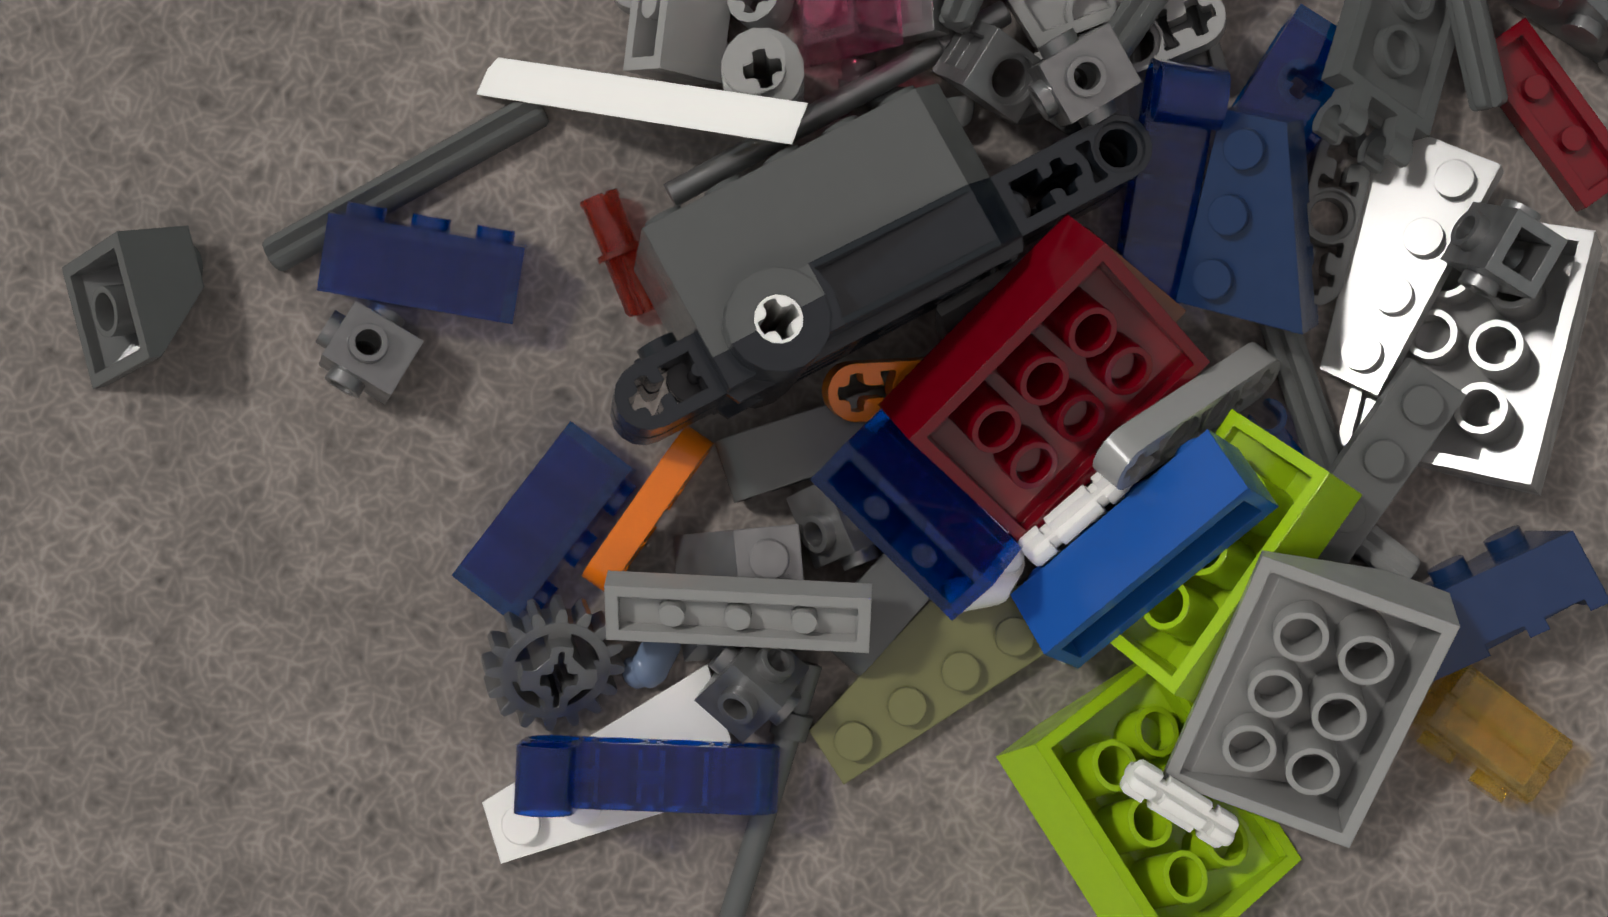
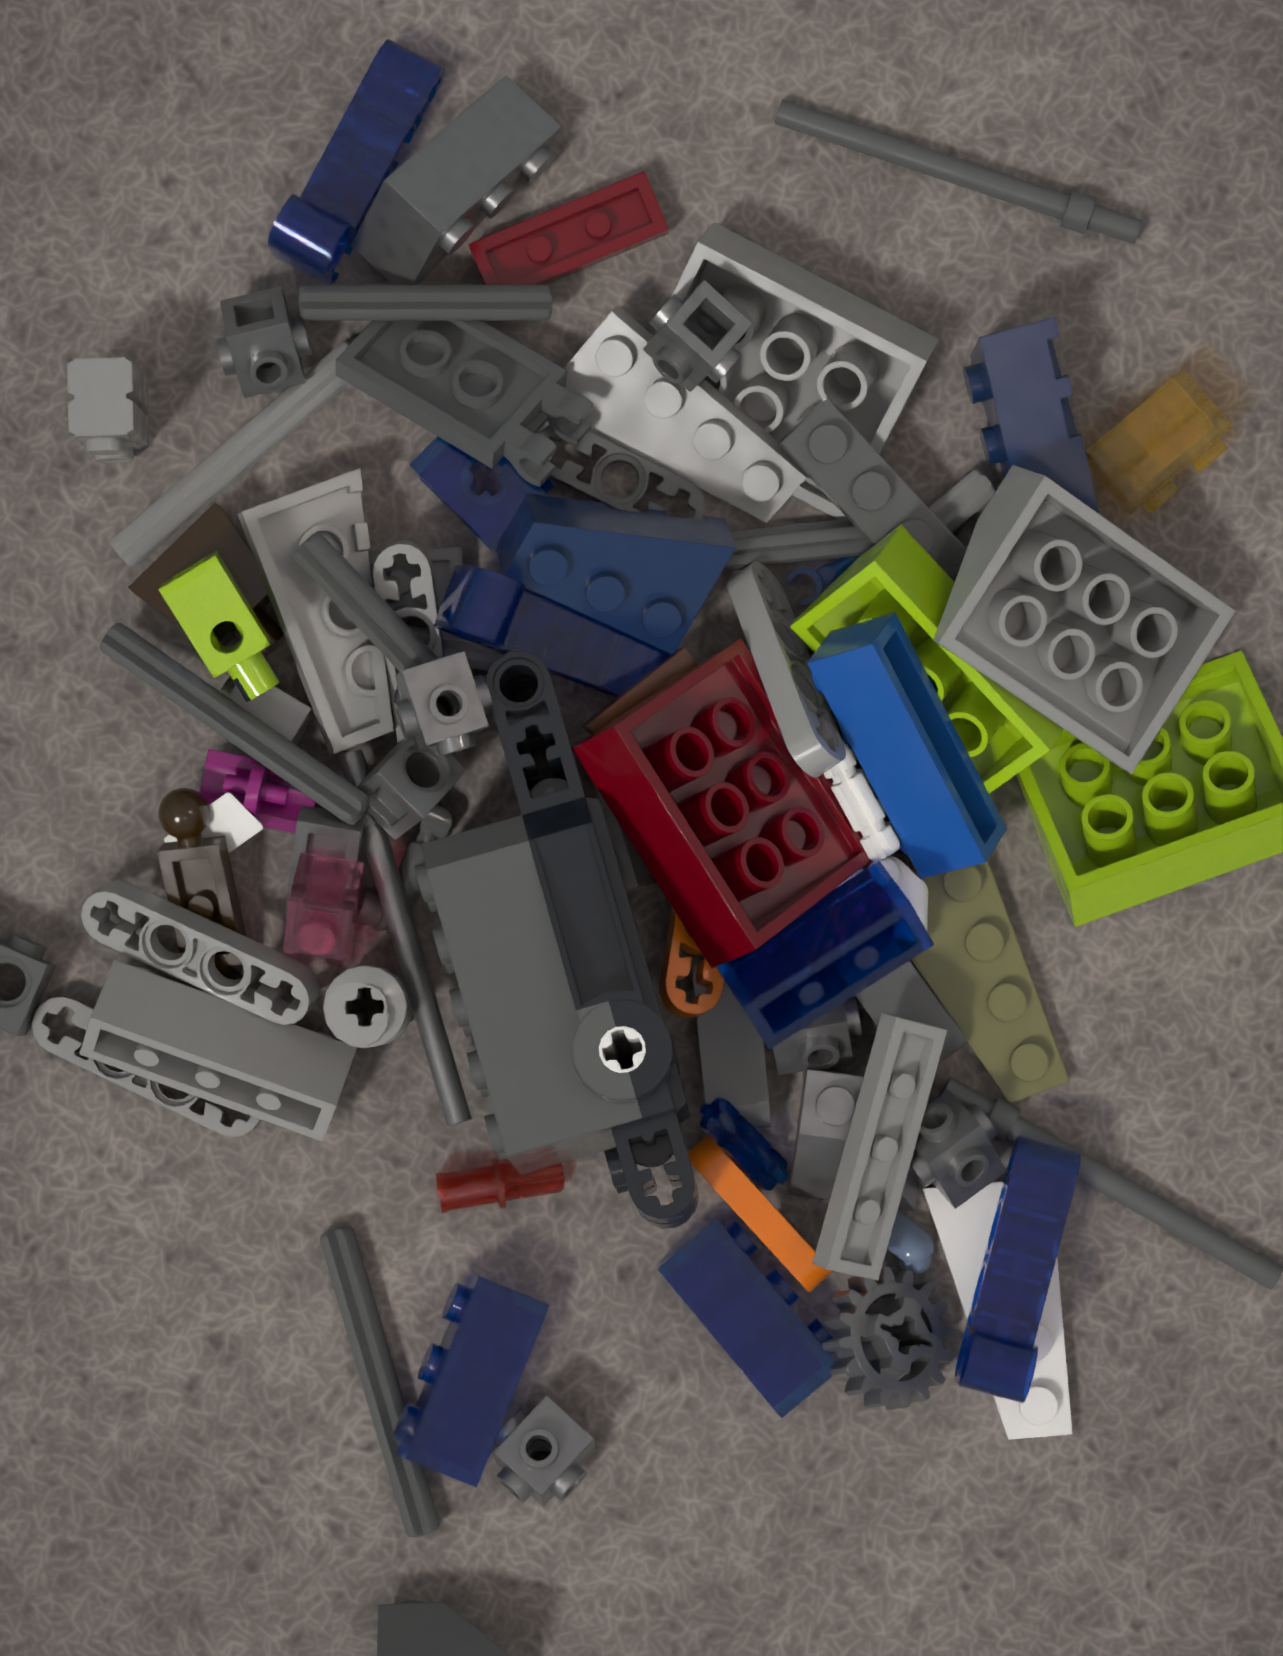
camera: 70 degrees left, 0 degrees up
(645, 100) = (361, 1131): white sticker -> none
(711, 478) = (743, 1144): none -> clear blue axle
(1179, 803) = (1157, 763): white axle -> none

